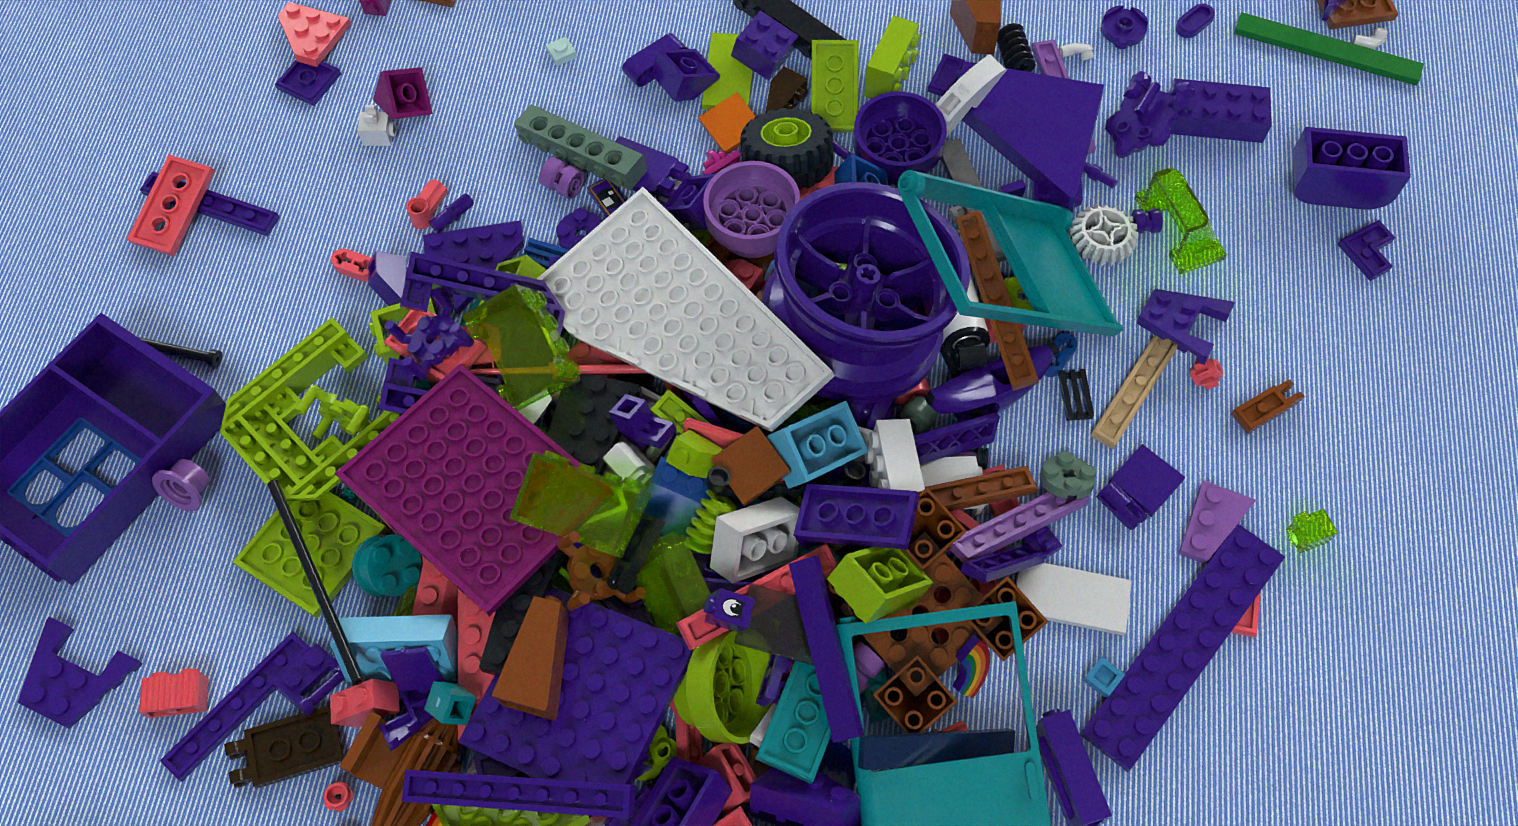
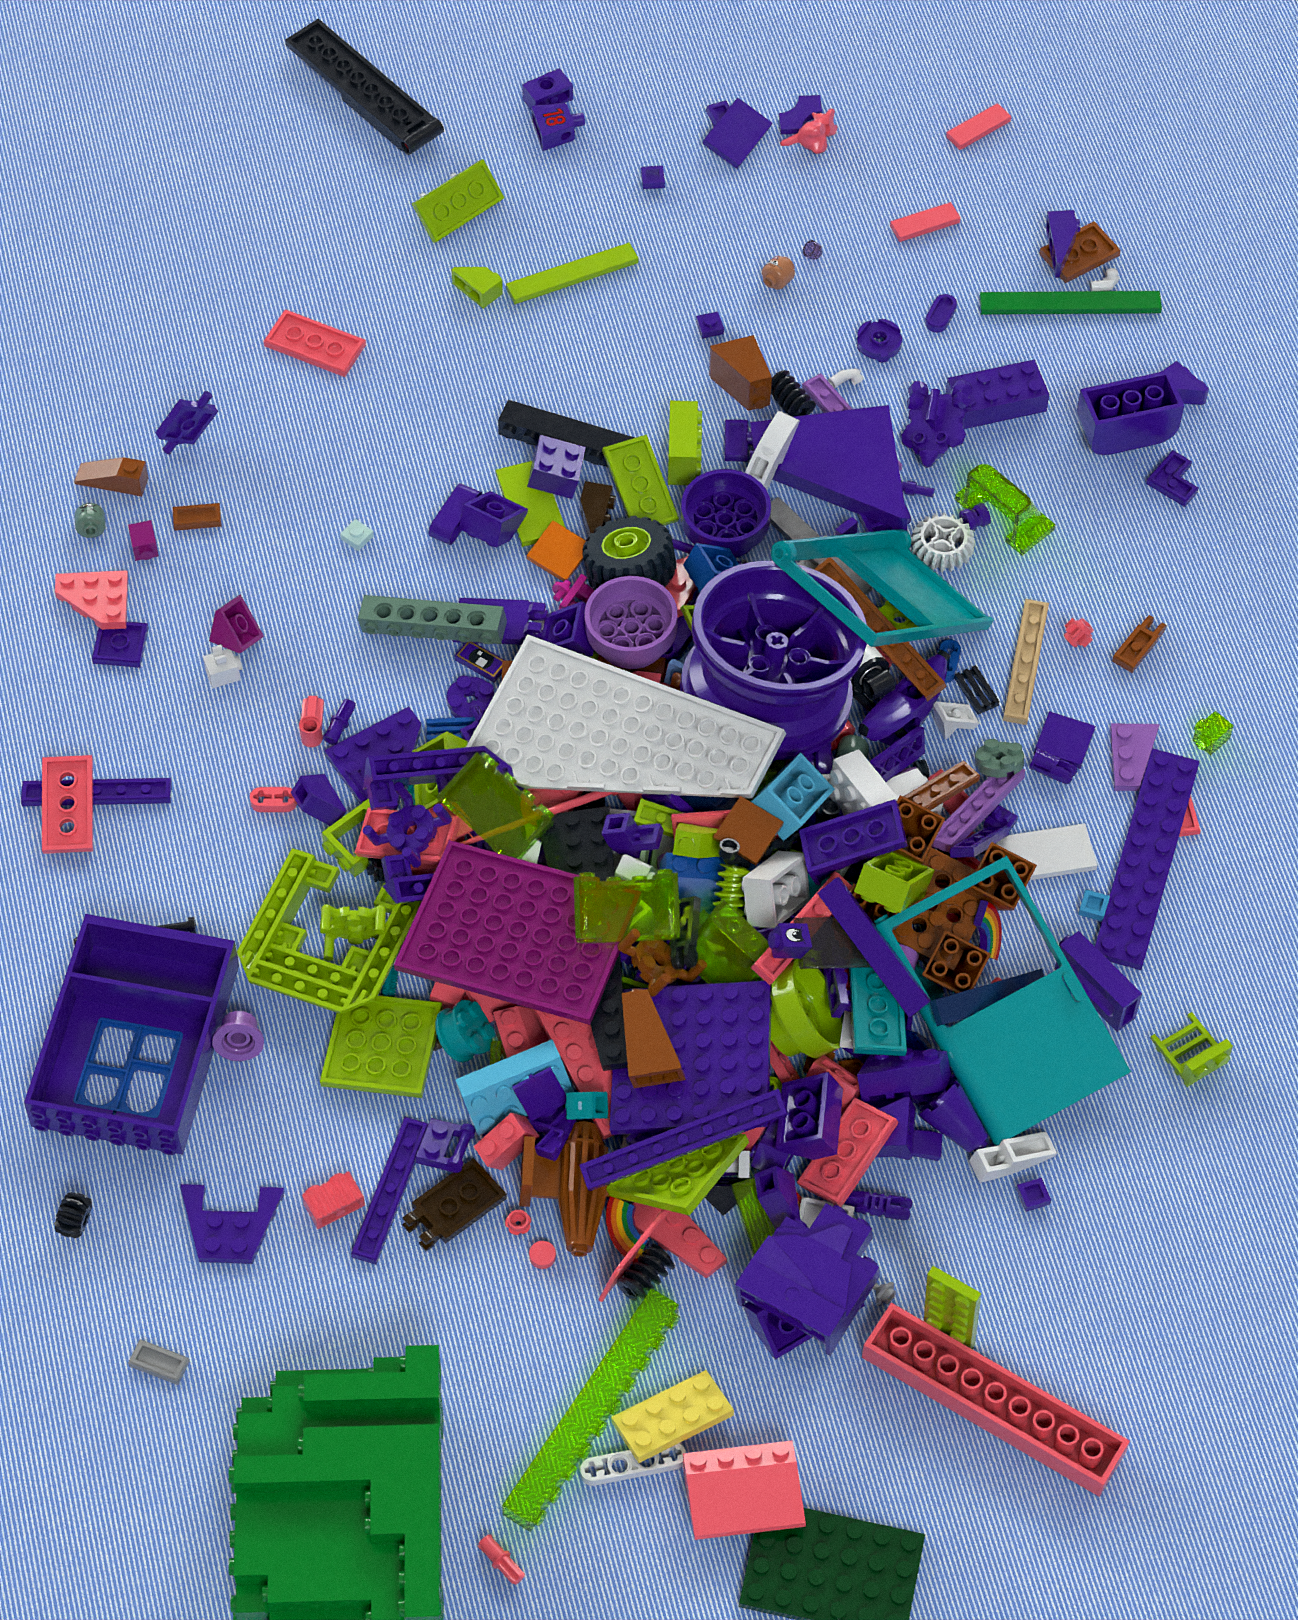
camera: 25 degrees left, 5 degrees down
(316, 583) = (419, 1056): black piece -> none
(561, 177) = (420, 654): medium lavender wheel -> none
(1040, 415) = (953, 716): none -> white slope
(1174, 314) = (1032, 593): dark purple wing -> none
(1422, 164) = (1189, 387): none -> dark purple slope

